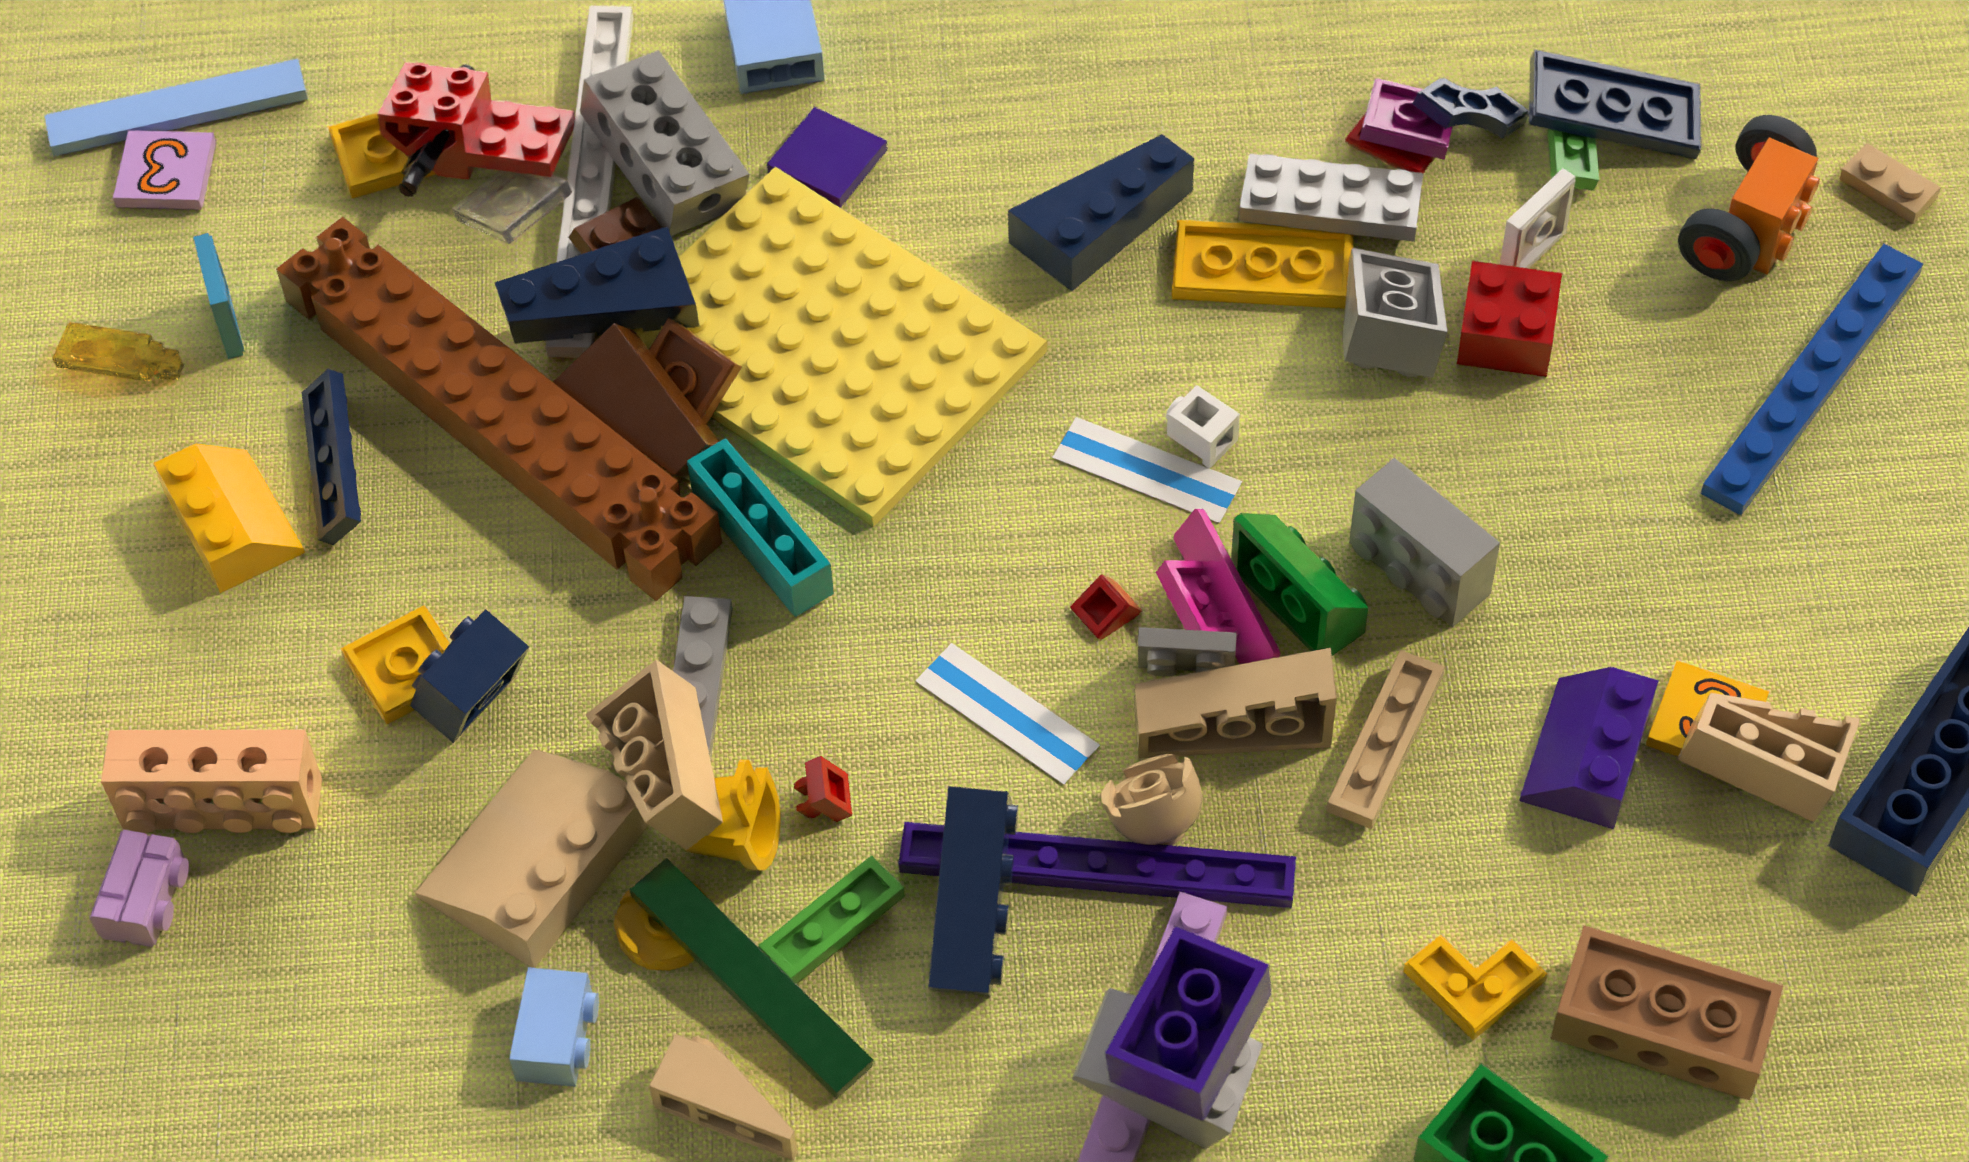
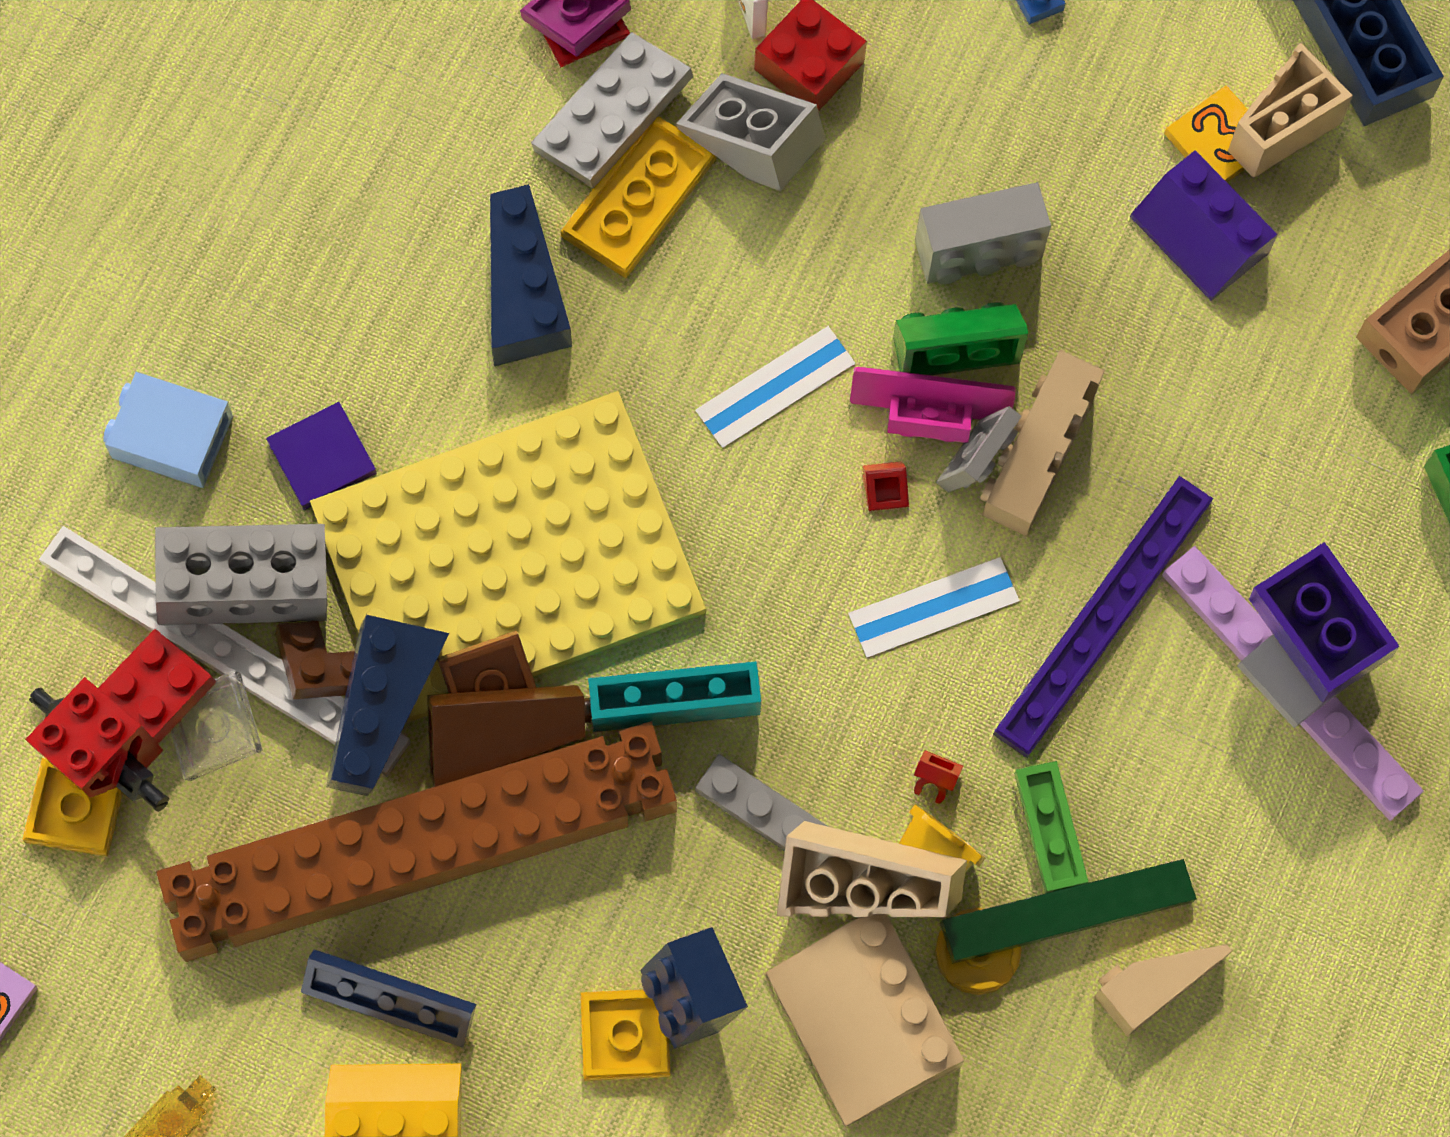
camera: 65 degrees left, 15 degrees up
(219, 295) = (171, 1013): dark azure tile -> none
(553, 1026) = (1032, 1076): light blue brick -> none
(971, 891) = (1097, 711): dark blue wedge -> none
(1155, 800) = (1088, 543): tan cylinder -> none
(1203, 425) = (774, 312): white brick -> none
(1385, 739) = (1119, 357): tan plate -> none
(1470, 994) = (1349, 424): yellow tile -> none

